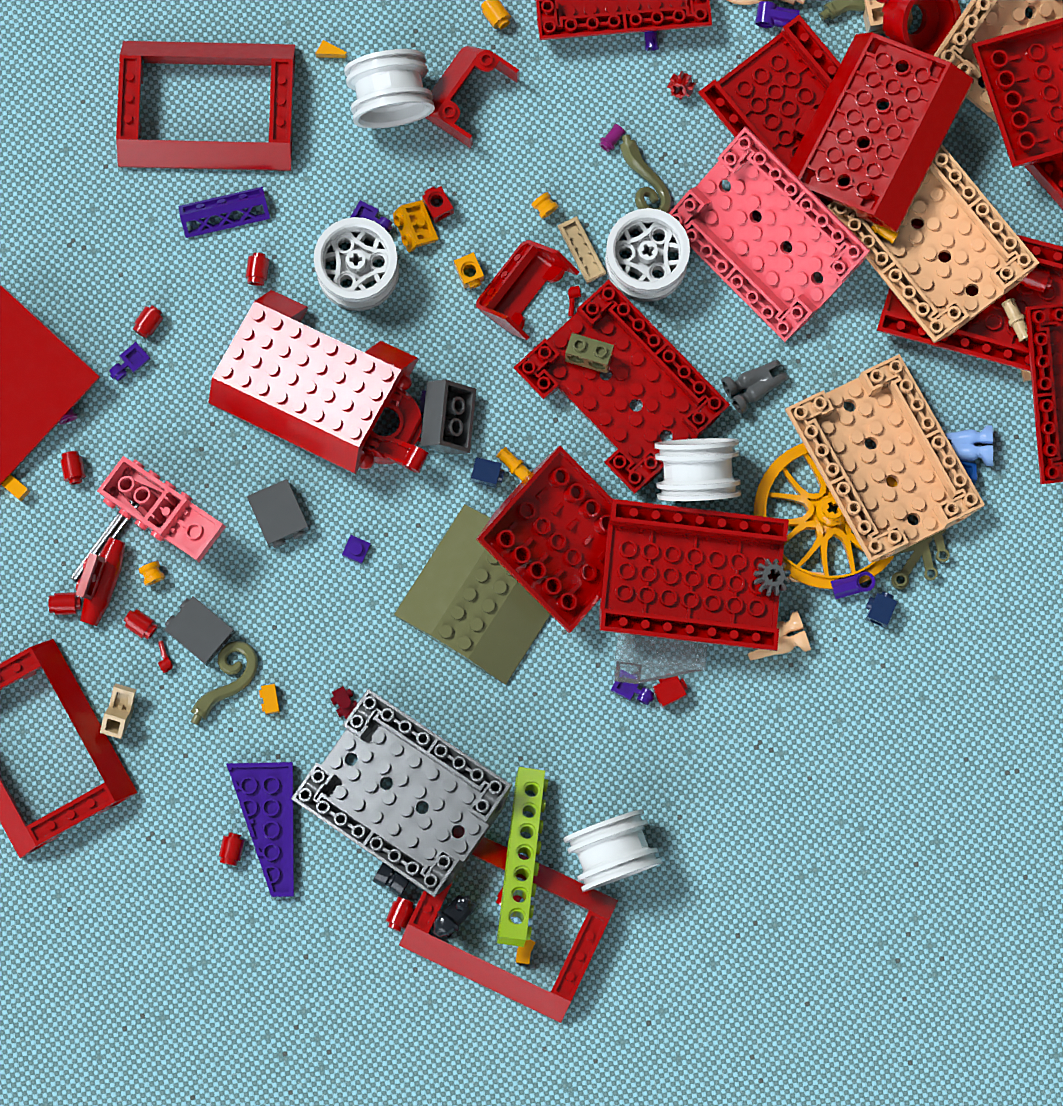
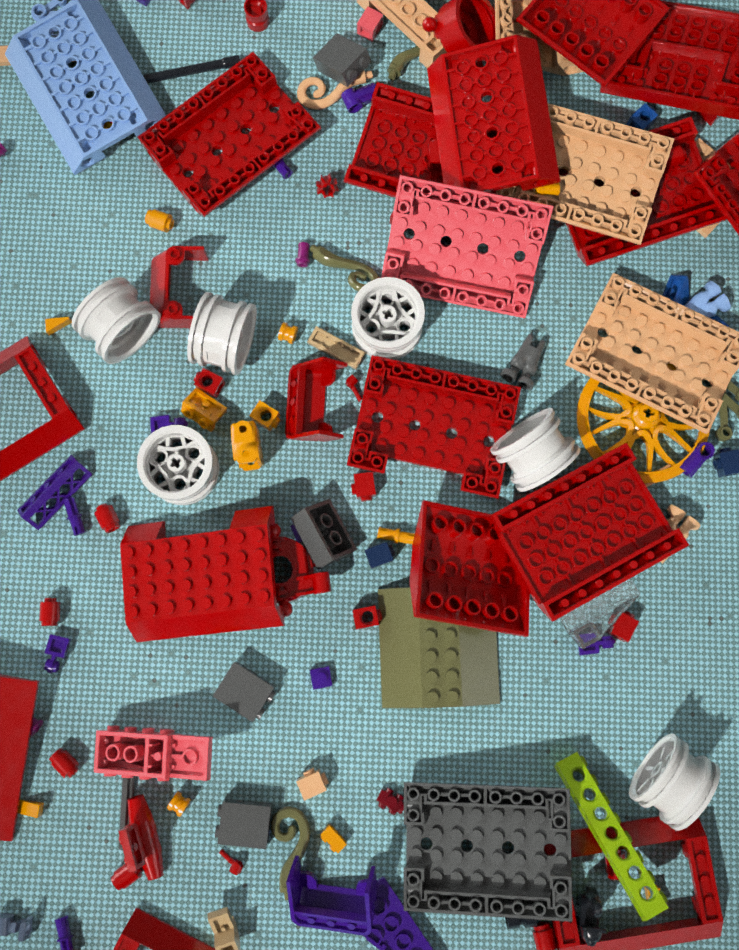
camera: 35 degrees left, 0 degrees up
(140, 624) = (196, 849): red brick -> none
(227, 247) = (74, 516): none -> dark purple axle
(227, 753) = (331, 906): none -> dark purple windscreen
(284, 637) = (312, 783): none -> light nougat brick
(430, 513) = (357, 614): none -> red brick
(432, 287) = (246, 445): none -> light orange piece
(480, 166) = (221, 333): none -> white wheel
(517, 399) = (364, 486): none -> red brick
(589, 353) = (395, 417): olive brick -> none
(763, 573) = (651, 496): dark grey gear -> none
(953, 415) = (677, 289): none -> blue slope
(1016, 319) = (679, 194): tan pin -> none
(1038, 230) = (646, 113): none -> blue brick

